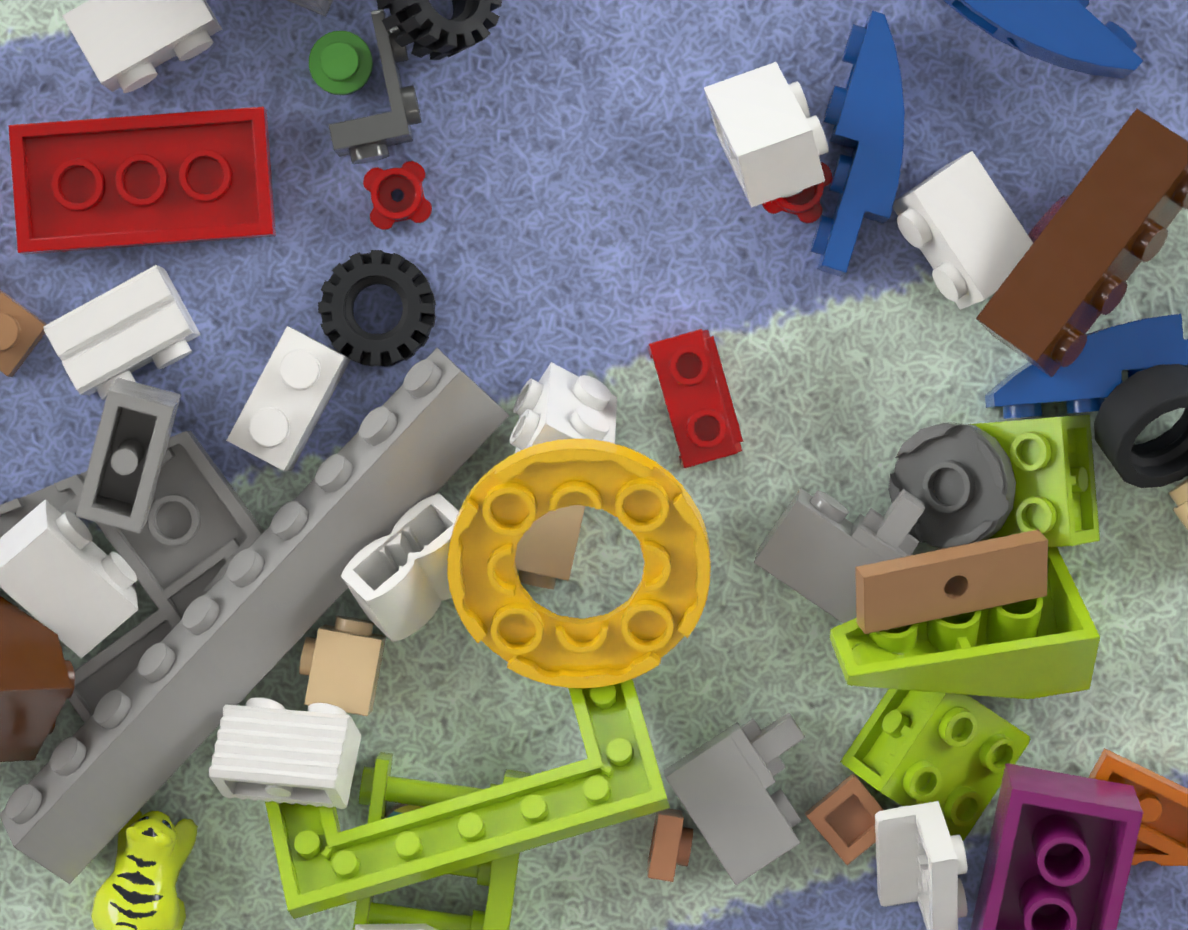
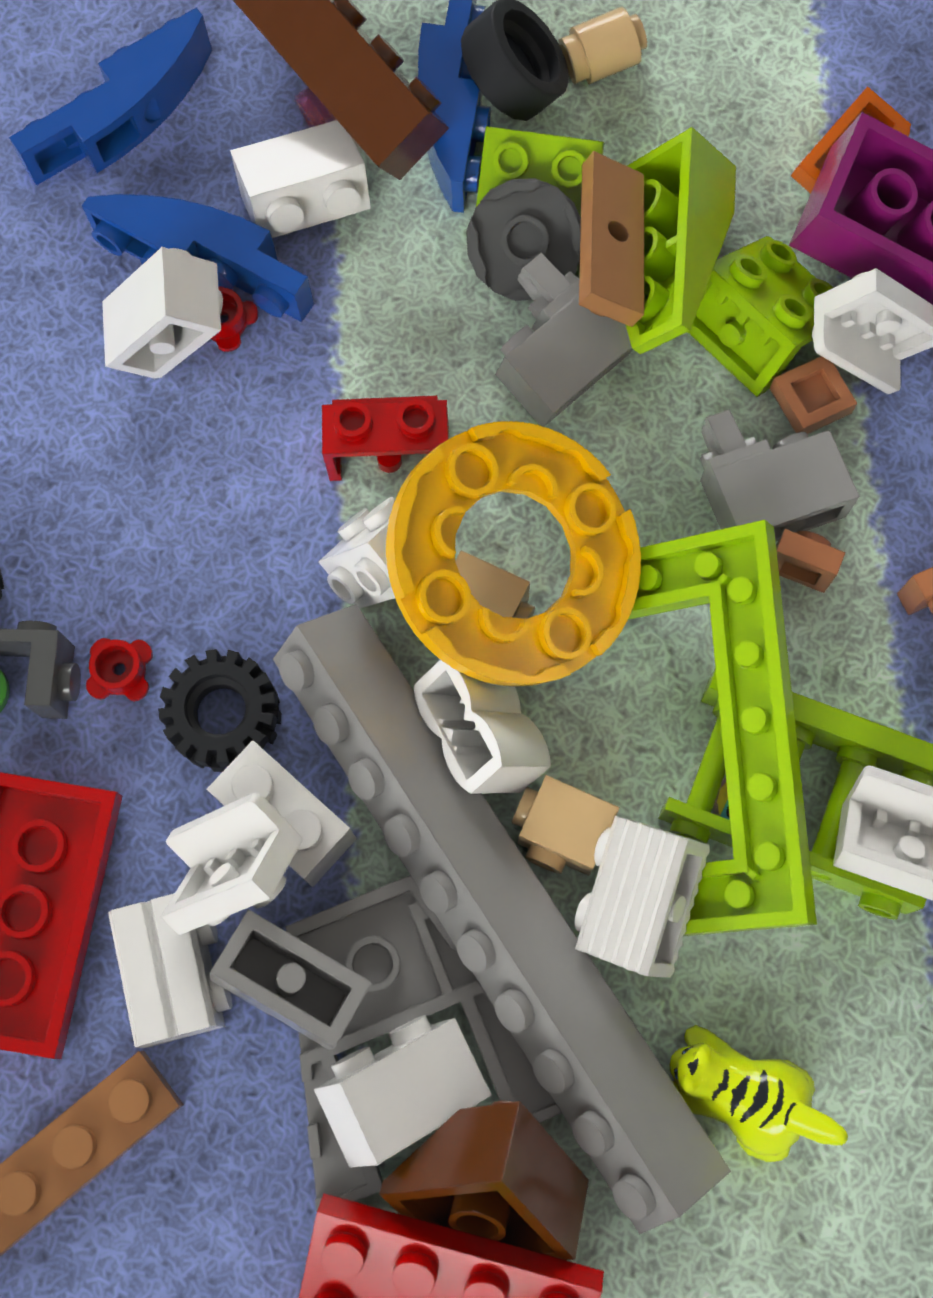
camera: 75 degrees left, 15 degrees down
(217, 374) = (233, 861): none -> white bracket

